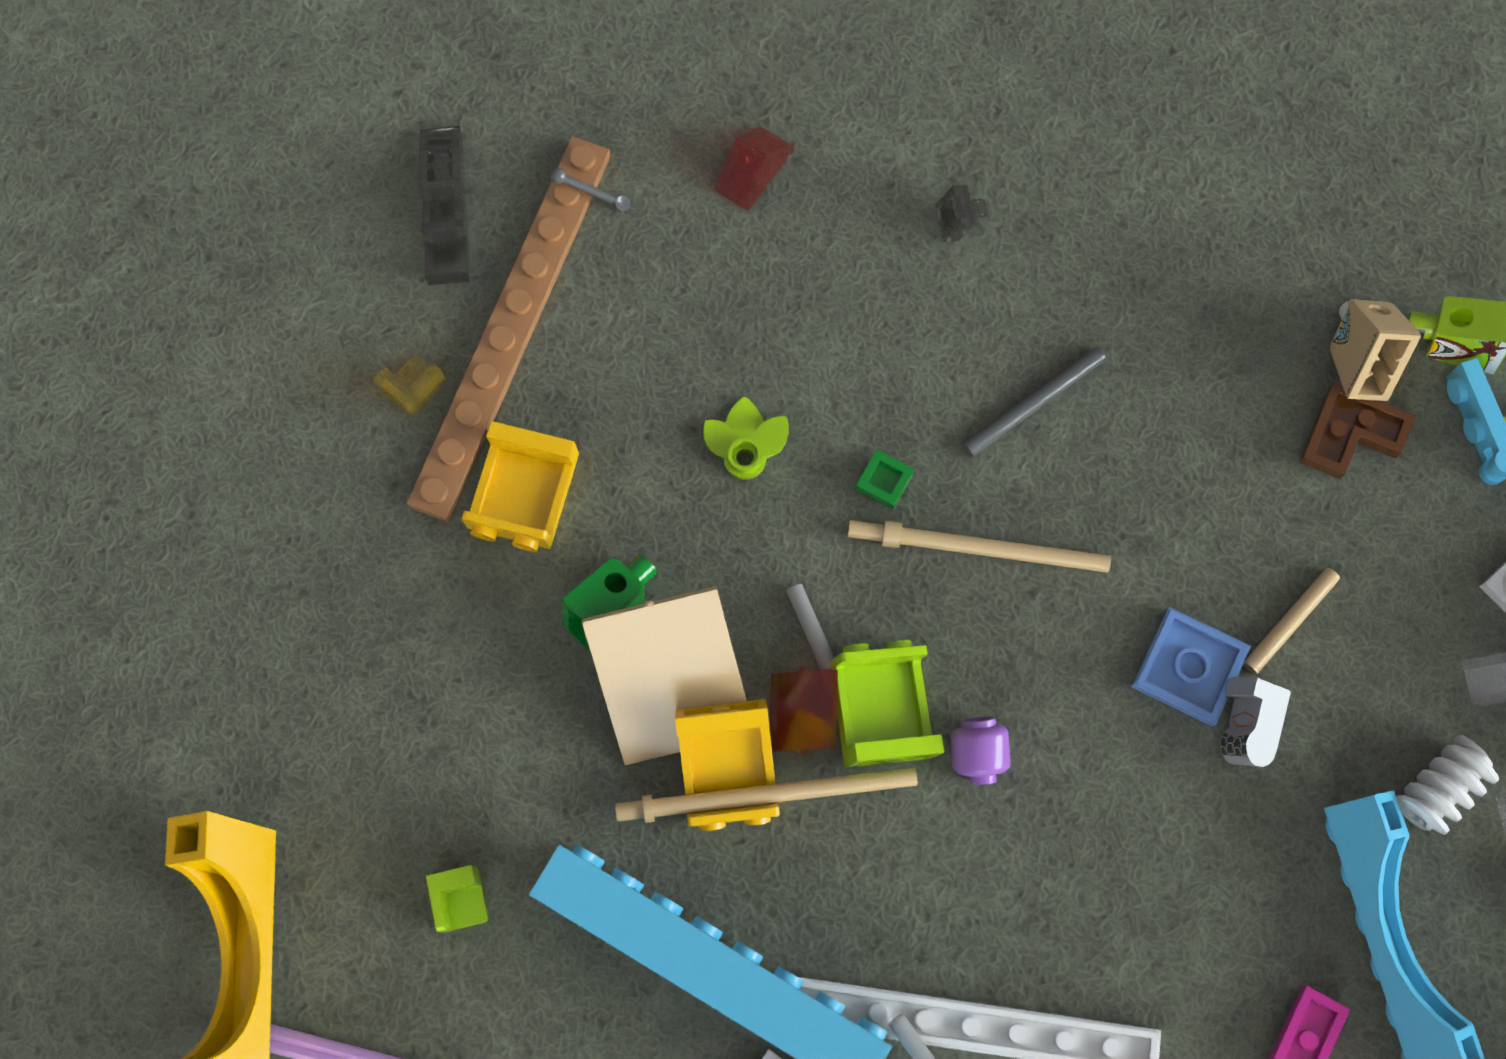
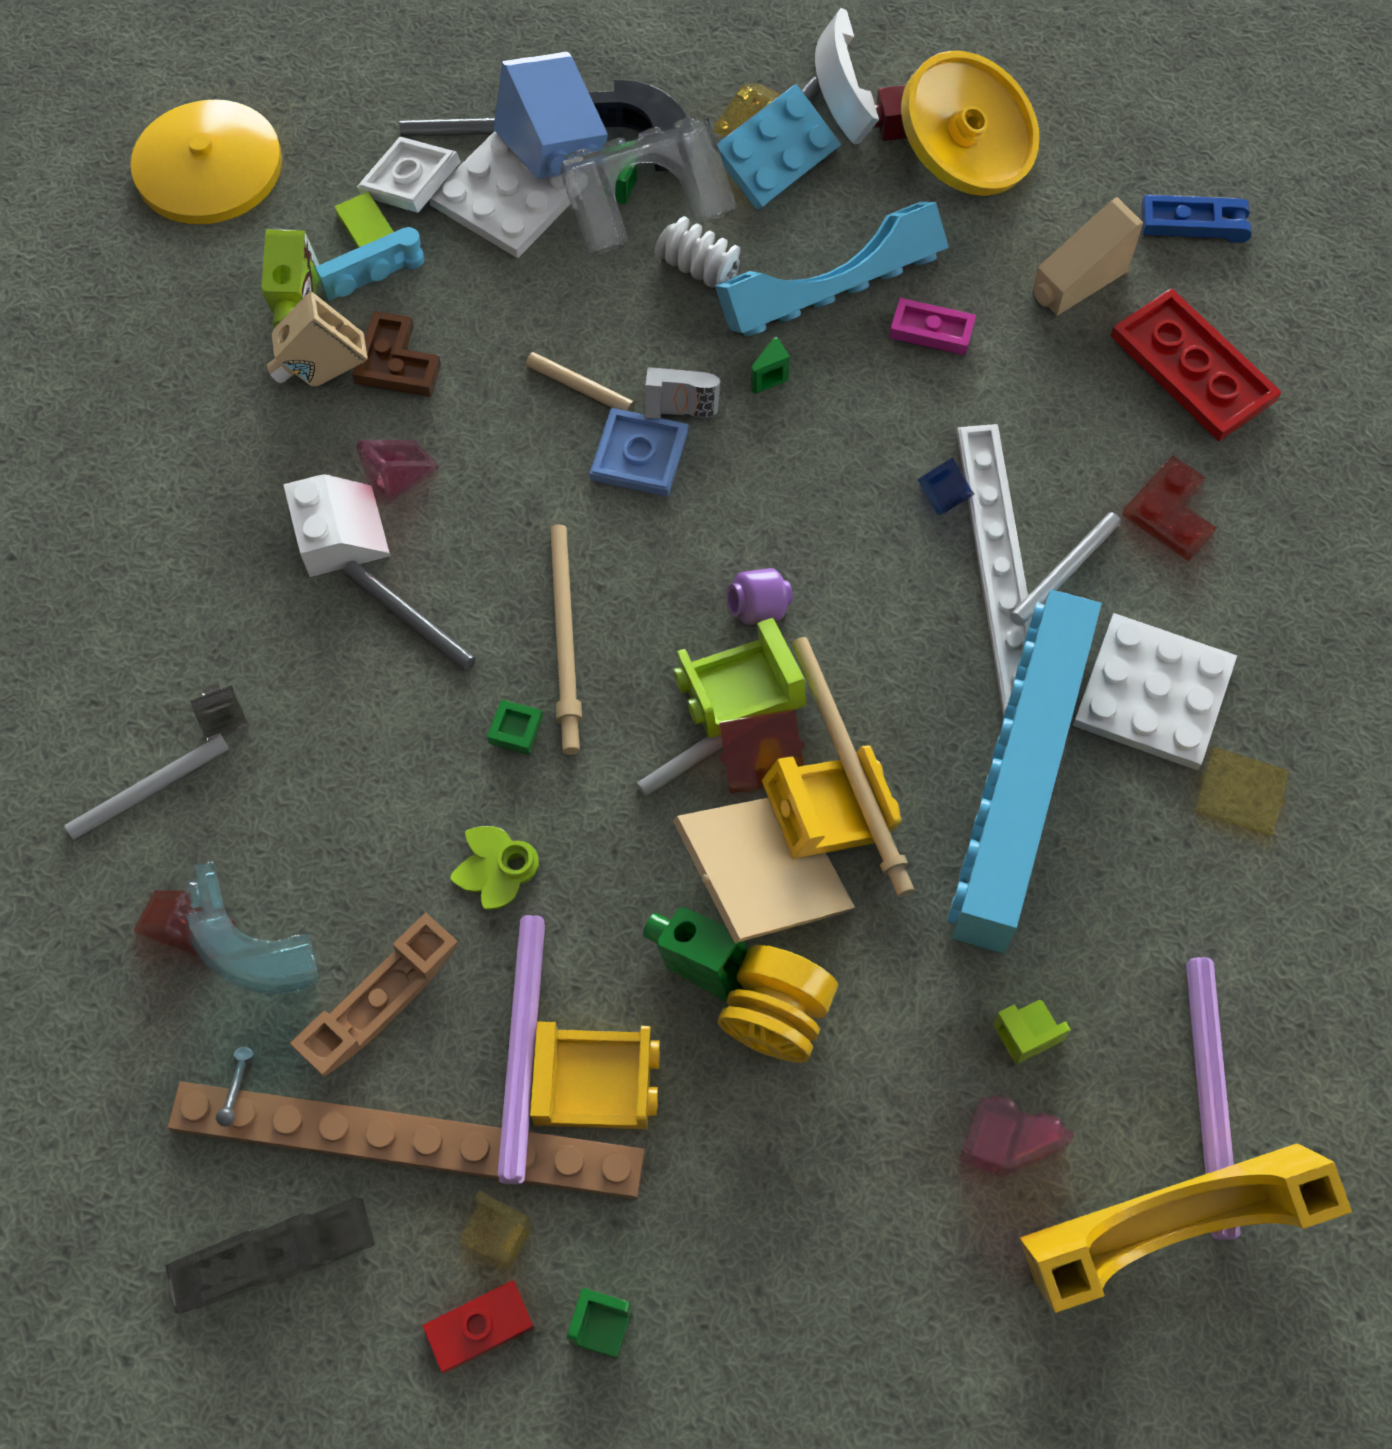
camera: 105 degrees left, 10 degrees down
(311, 452) = (599, 1323): none -> green panel
(340, 358) = (478, 1327): none -> red plate
(358, 845) = (1011, 1140): none -> clear pink slope
(525, 653) = (778, 1003): none -> yellow wheel
(582, 433) = (521, 1051): none -> lavender axle
(640, 314) = (378, 999): none -> medium nougat slope
(701, 196) = (237, 958): none -> clear light blue arch
(898, 150) = (146, 787): none -> light grey bar
(1083, 992) = (946, 486): none -> clear blue tile
(1150, 342) = (335, 523): none -> white slope
(1212, 411) = (395, 465): none -> clear pink slope
(1274, 831) = (770, 367): none -> green slope

